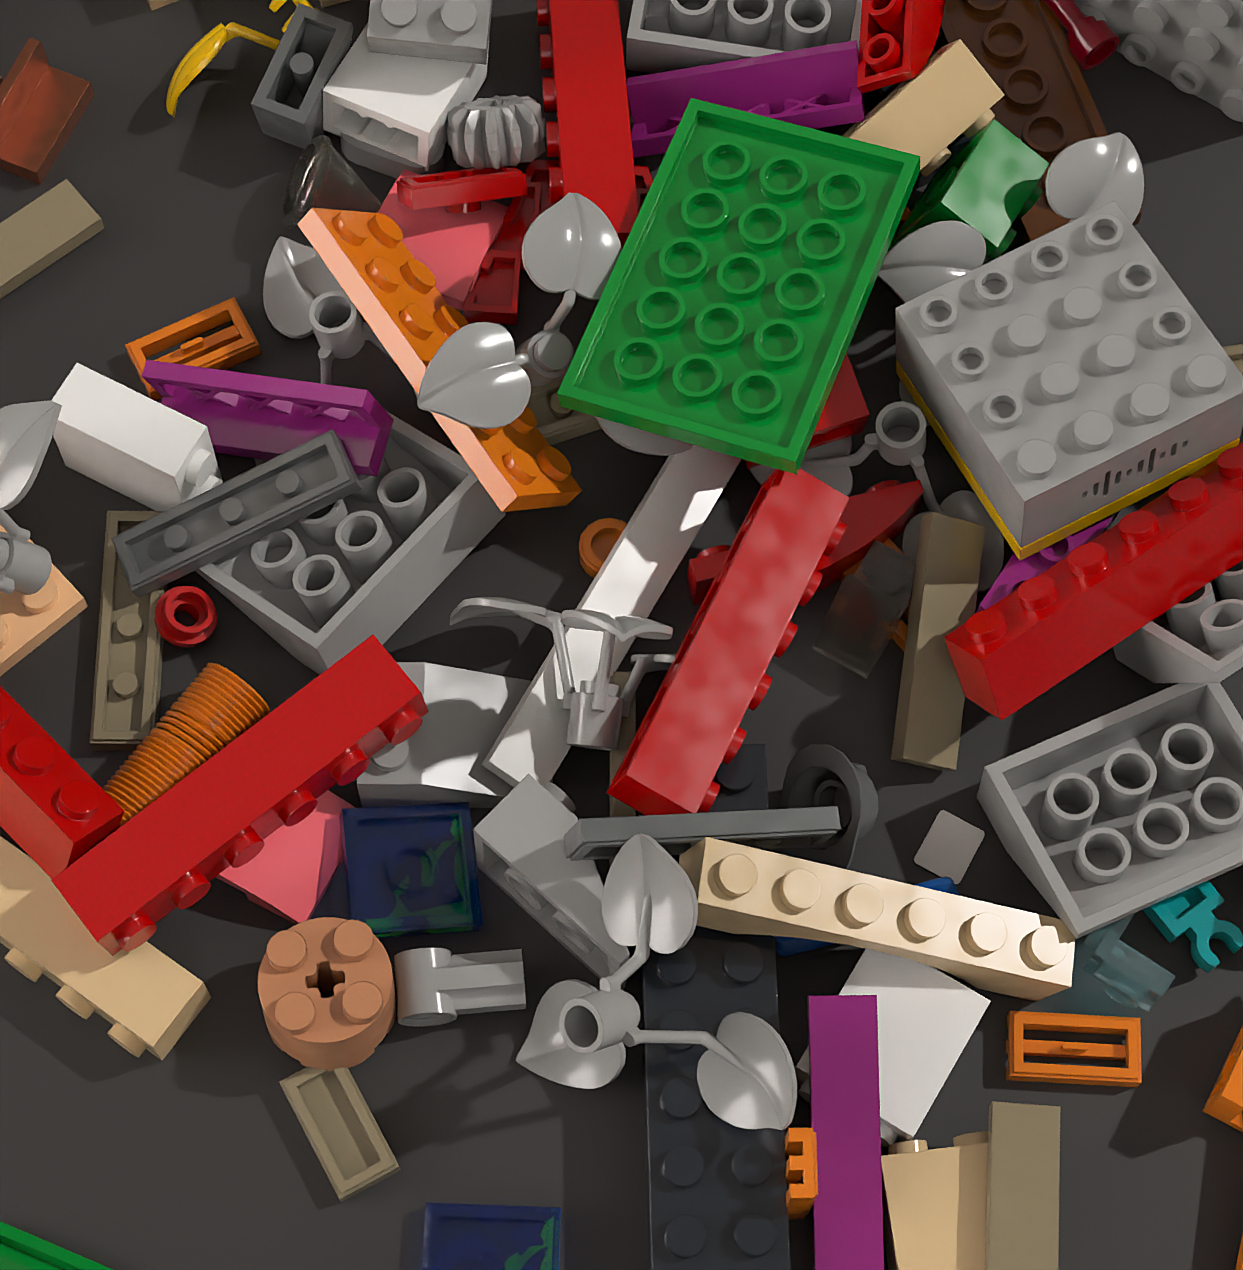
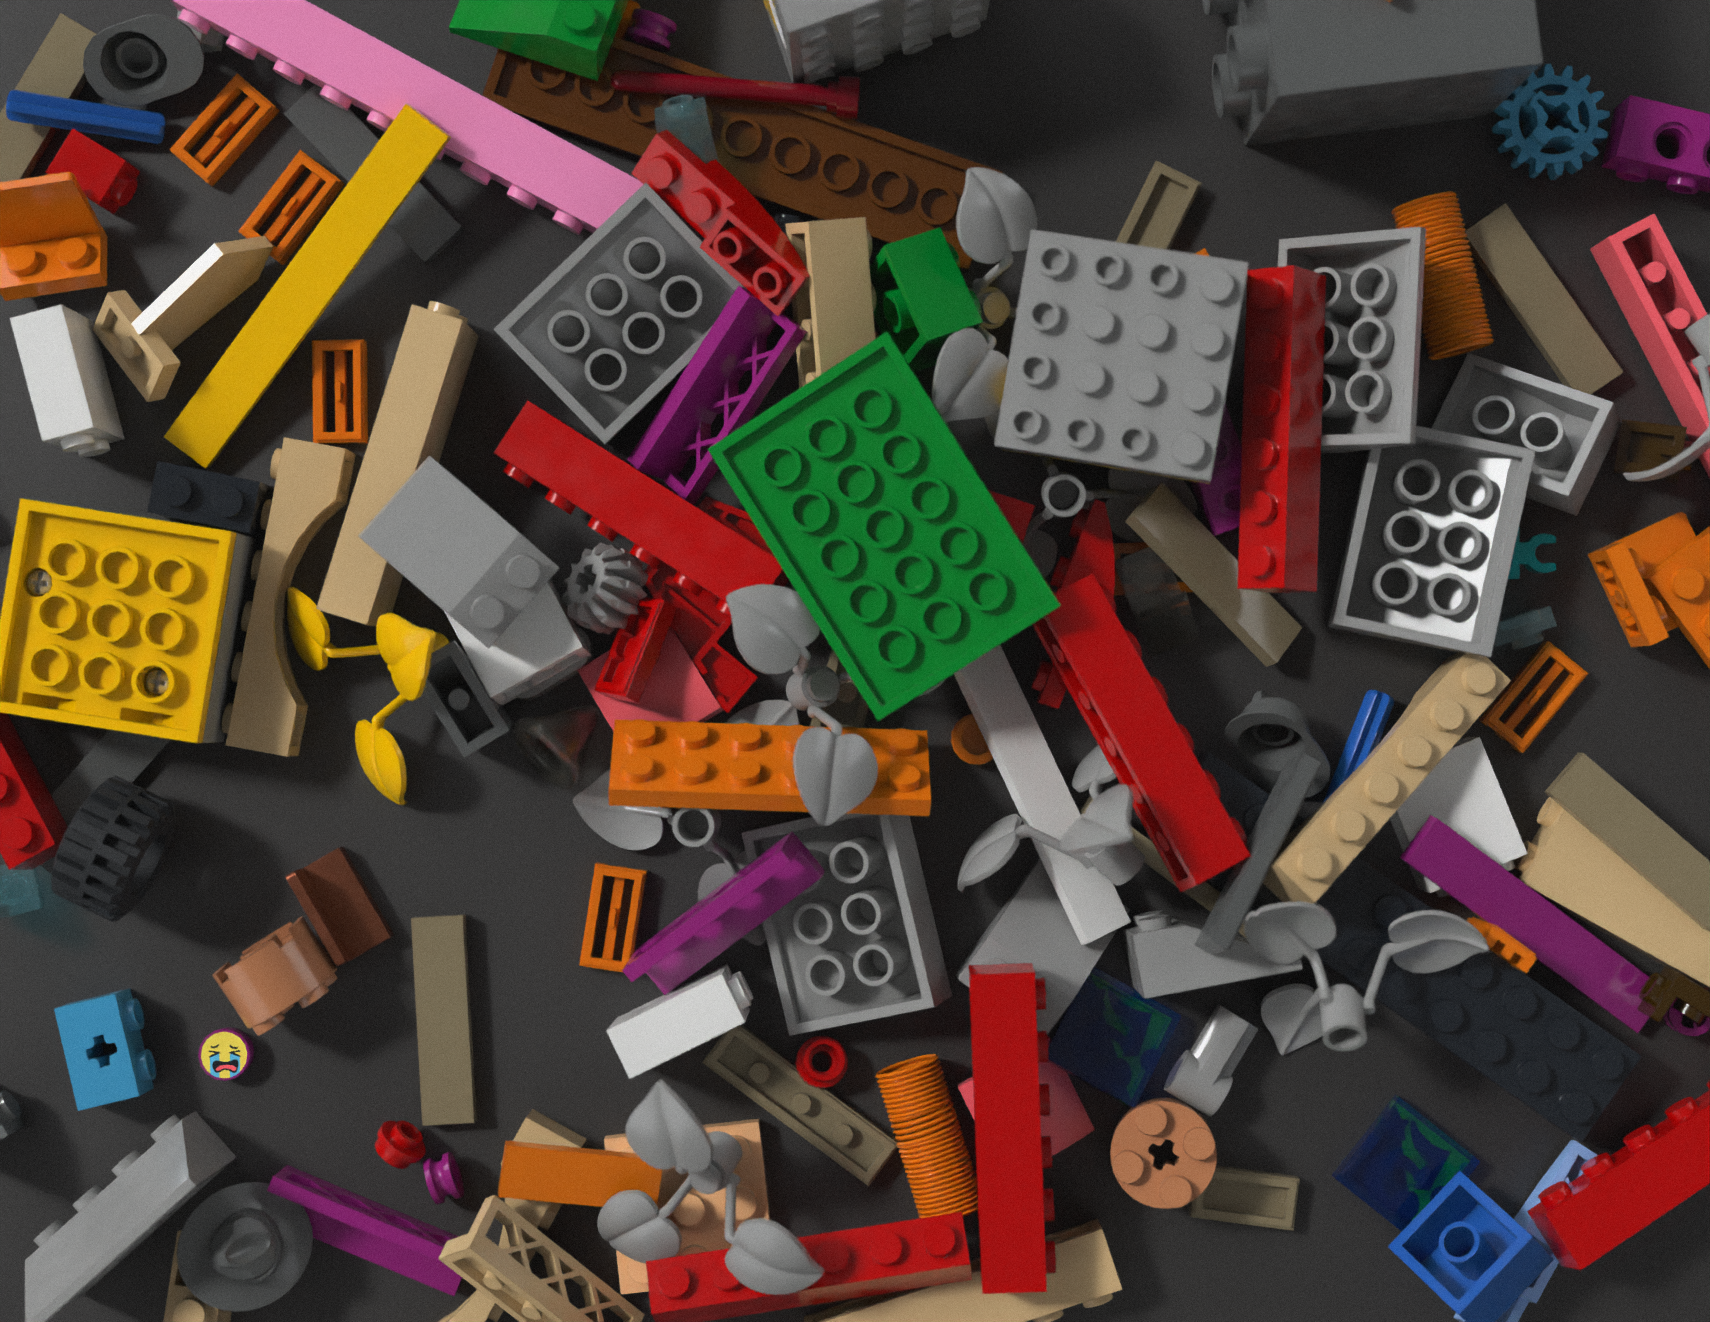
camera: 45 degrees left, 20 degrees up
(236, 513) = (783, 985): dark grey tile -> none
(949, 846) = (1345, 669): white sticker -> none

